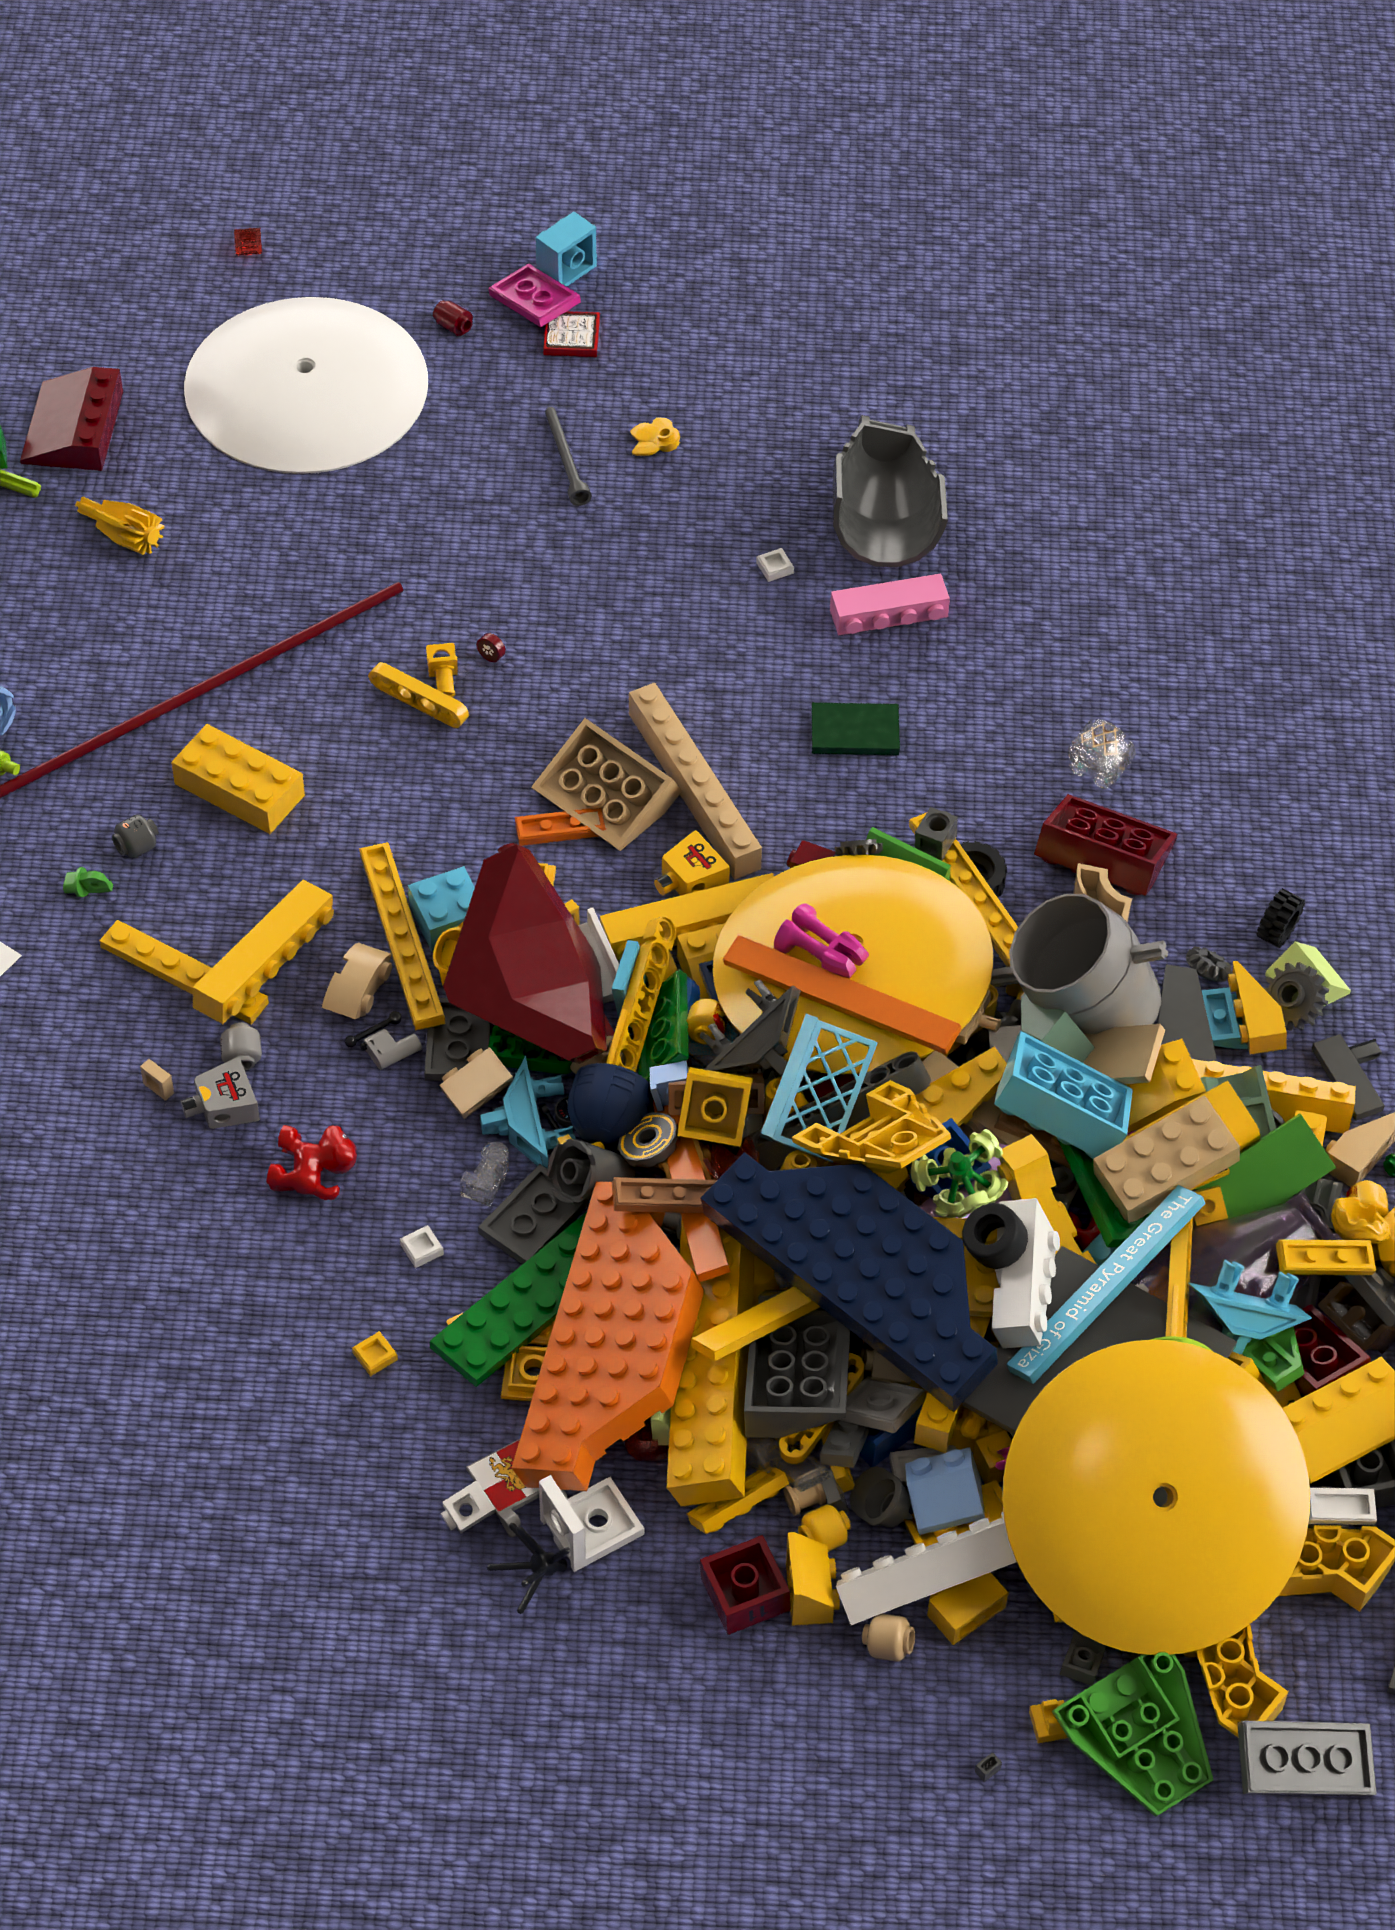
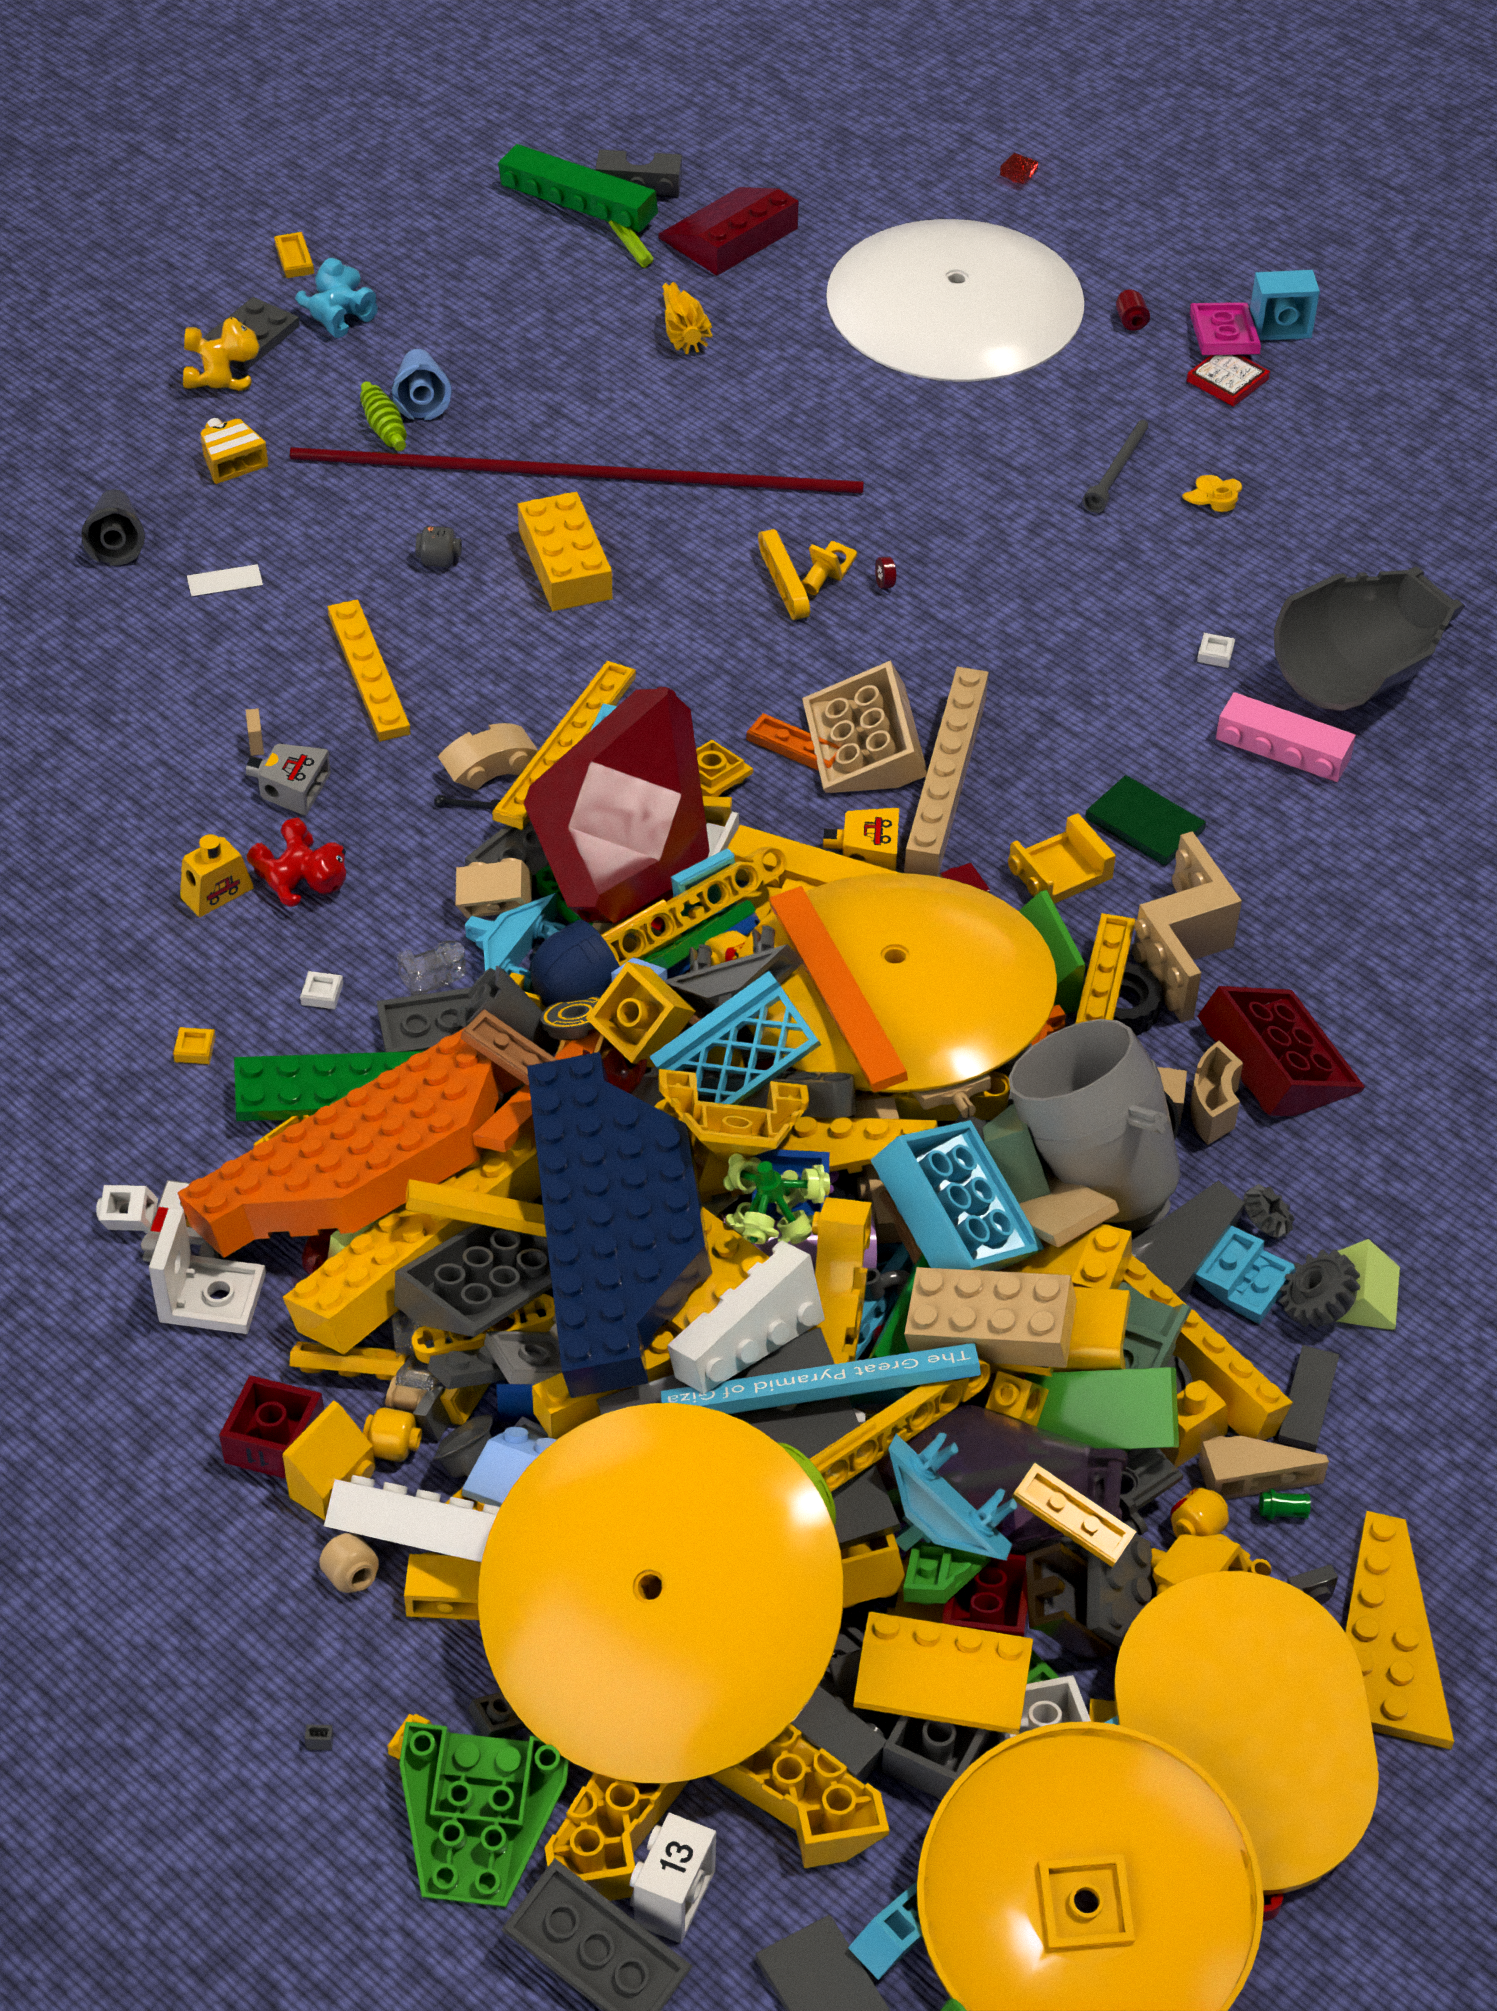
camera: 40 degrees right, 5 degrees down
(86, 882) = (364, 558): bright green piece -> none
(241, 1042) = (346, 747): light grey head -> none
(260, 1205) = (213, 875): none -> yellow torso
(263, 952) = (435, 685): yellow brick -> none
(386, 1051) = (459, 824): light grey piece -> none
(541, 1564) = (134, 1293): black plant -> none
(835, 797) = (1064, 862): none -> yellow panel
(837, 958) = (866, 947): dark pink piece -> none
(859, 847) = (1013, 896): dark grey gear -> none
(936, 833) = (1105, 933): dark grey brick -> none
(975, 779) = (1186, 926): none -> tan bracket
(1007, 1248) = (740, 1262): black tyre -> none
(1100, 753) = (1351, 968): clear brick -> none
(1261, 1015) = (1260, 1286): yellow slope -> none
(1280, 918) = (1380, 1212): black tyre -> none
(1309, 1674) = (673, 1876): none -> white brick
(1342, 1506) = (862, 1748): white tile -> none
(1358, 1221) = (1157, 1515): yellow hair -> none
(1366, 1051) = (1351, 1388): dark grey piece -> none

